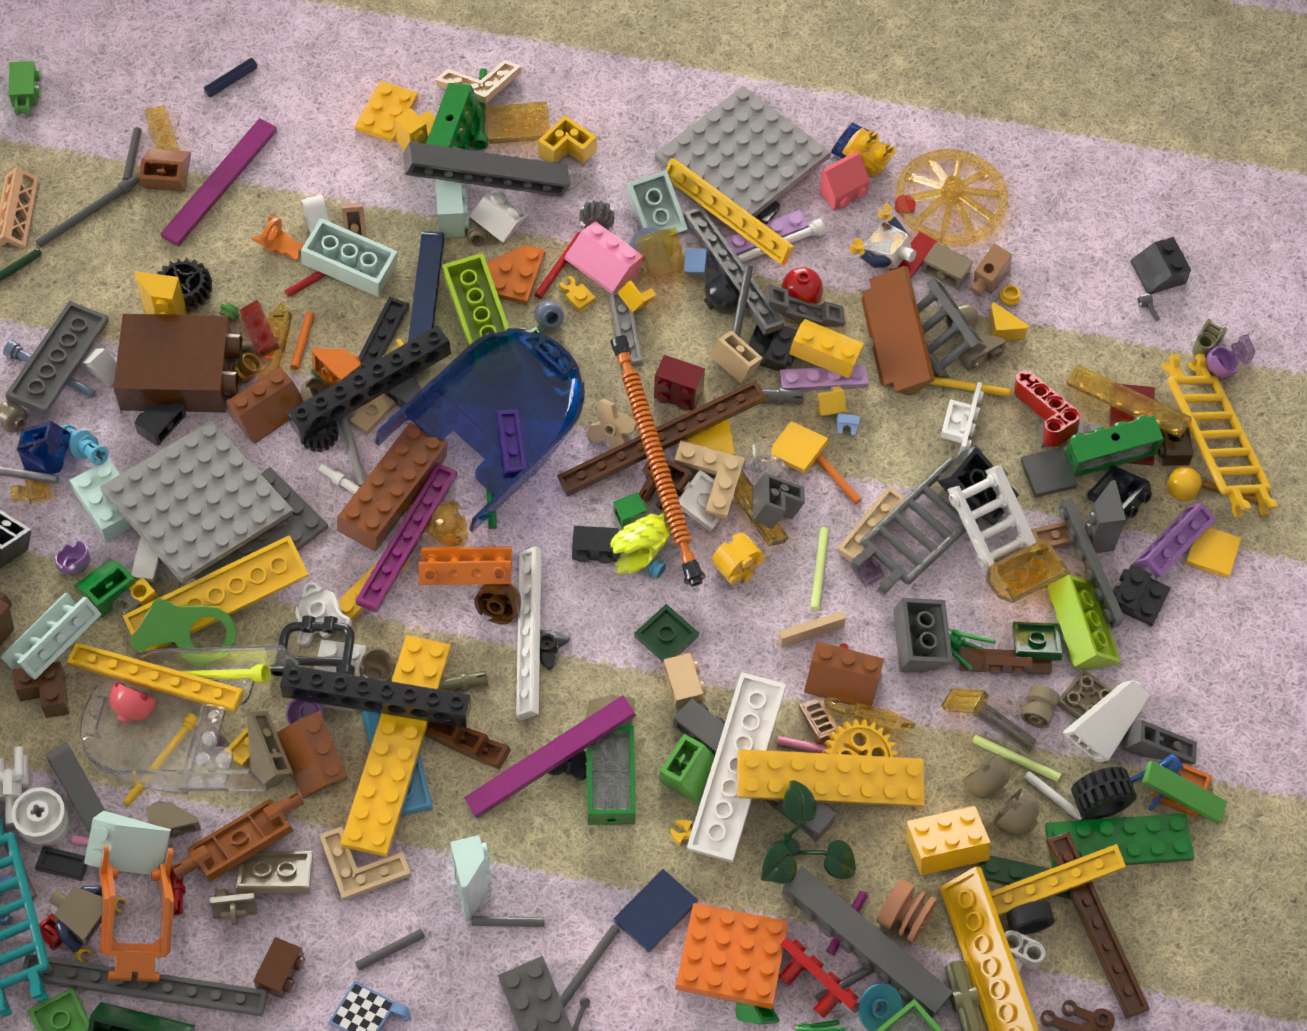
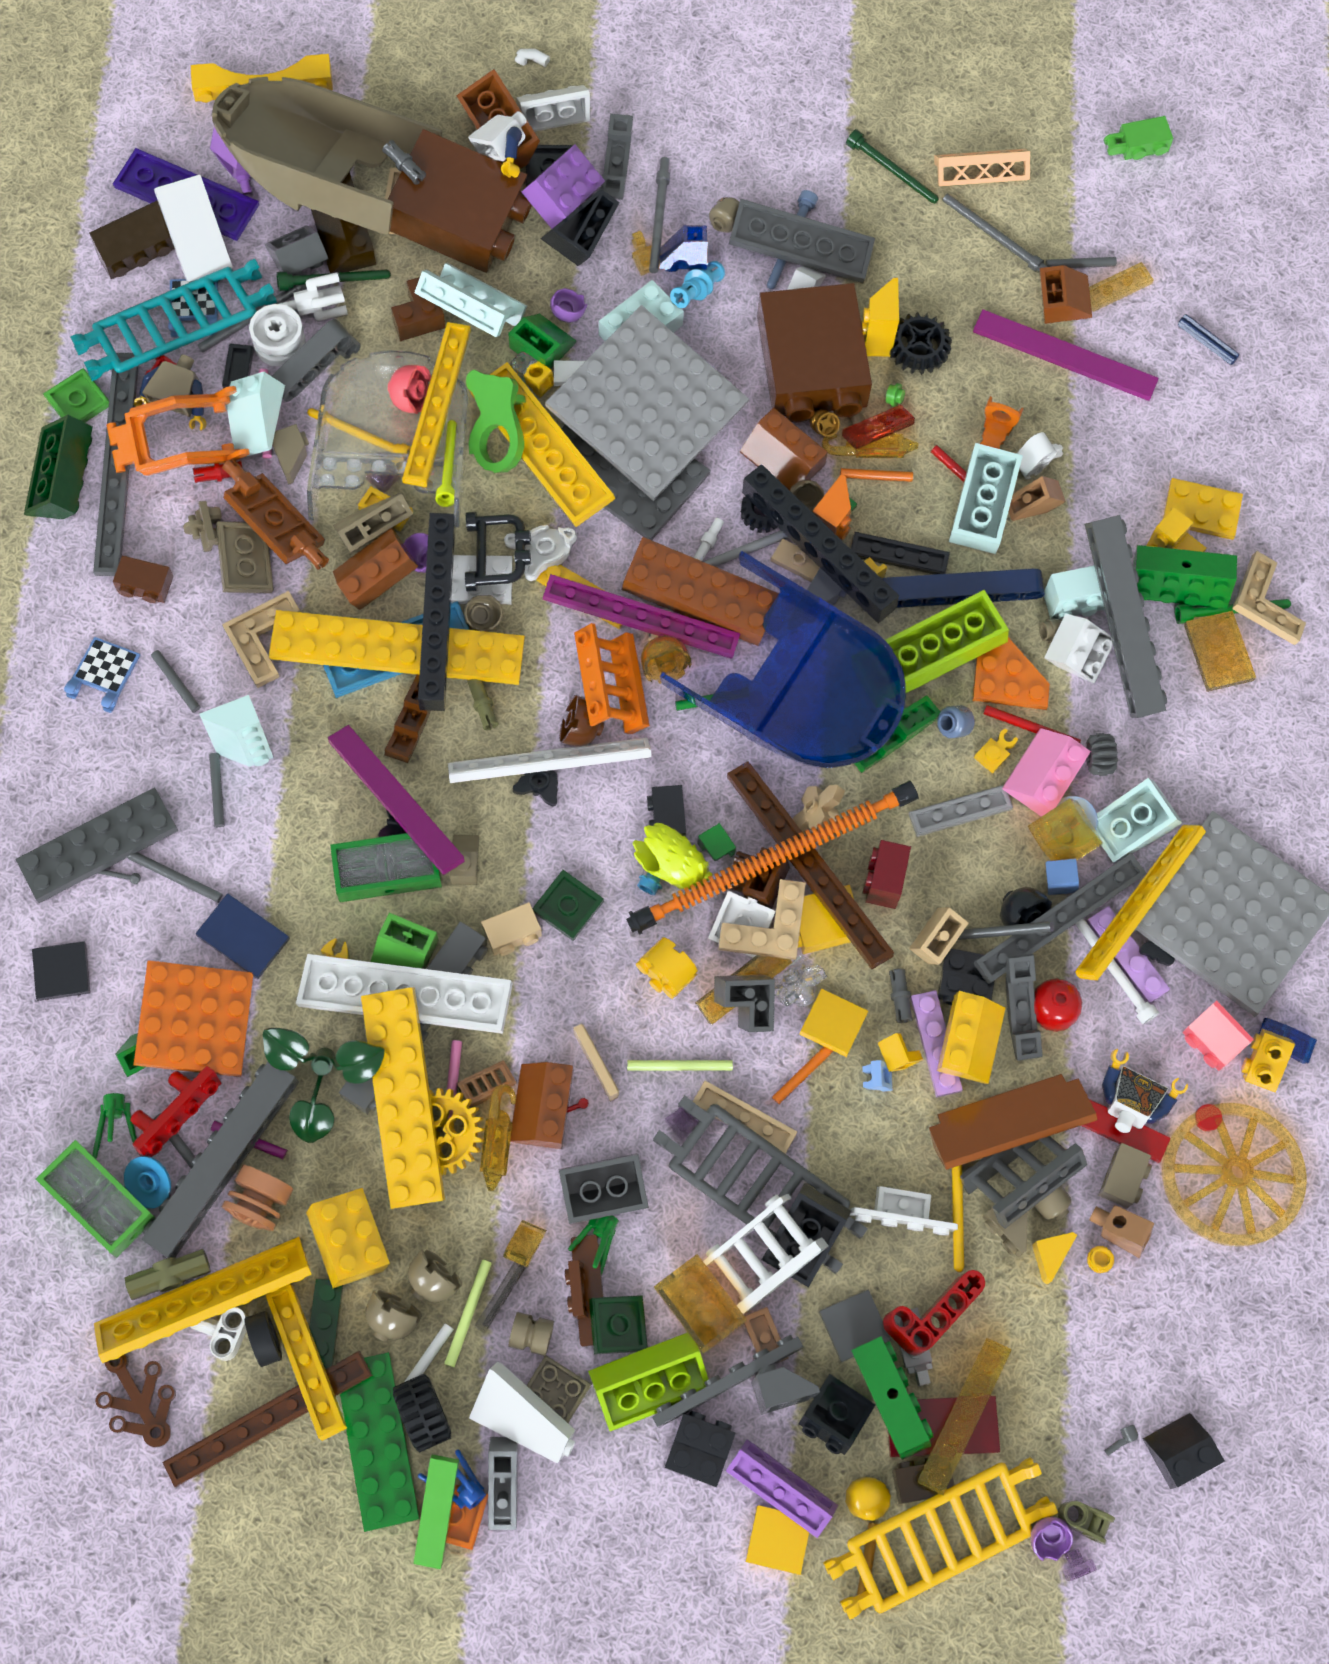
camera: 80 degrees right, 10 degrees up
(159, 422) = (743, 353): black slope -> none
(511, 441) = (776, 703): dark purple tile -> none
(567, 138) = (1203, 702): yellow brick -> none
(633, 297) = (1001, 812): yellow panel -> none

